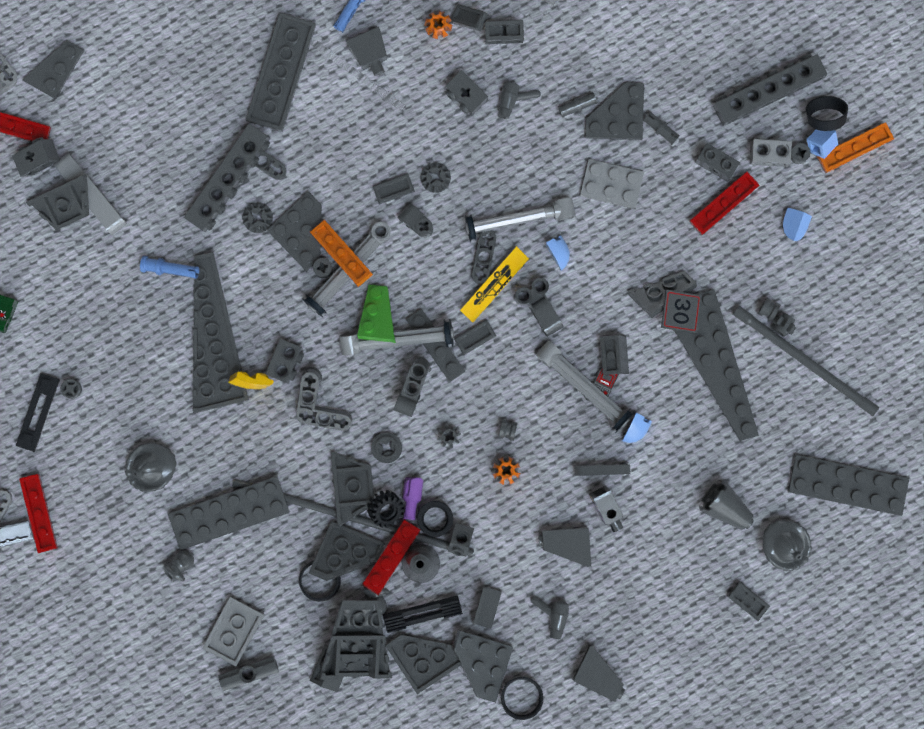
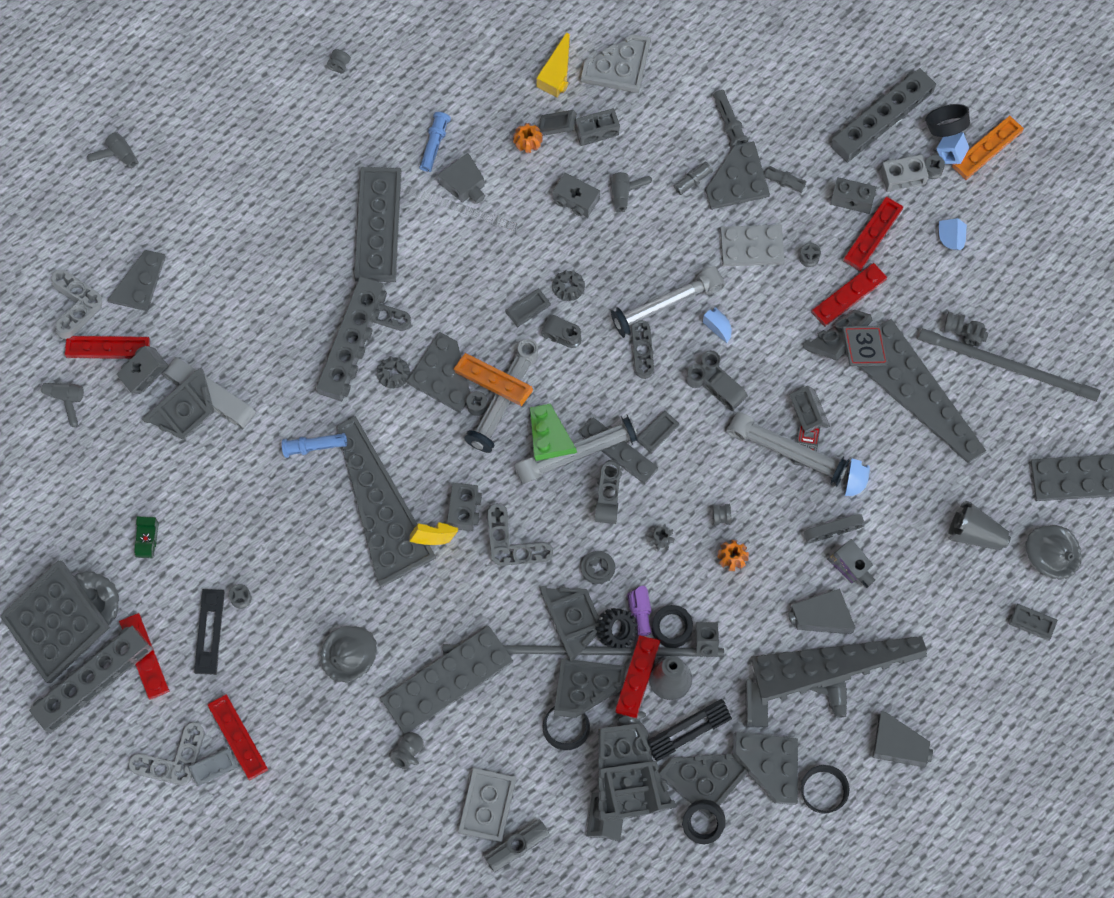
camera: 15 degrees left, 15 degrees down
(404, 709) = (701, 838): none -> black tyre
(494, 284) = (661, 374): yellow sticker -> none
(536, 590) = (801, 670): none -> dark grey wing
(629, 63) = (733, 126): none -> dark grey pin
(660, 204) = (810, 250): none -> dark grey wheel
(684, 255) = (849, 294): none -> red plate

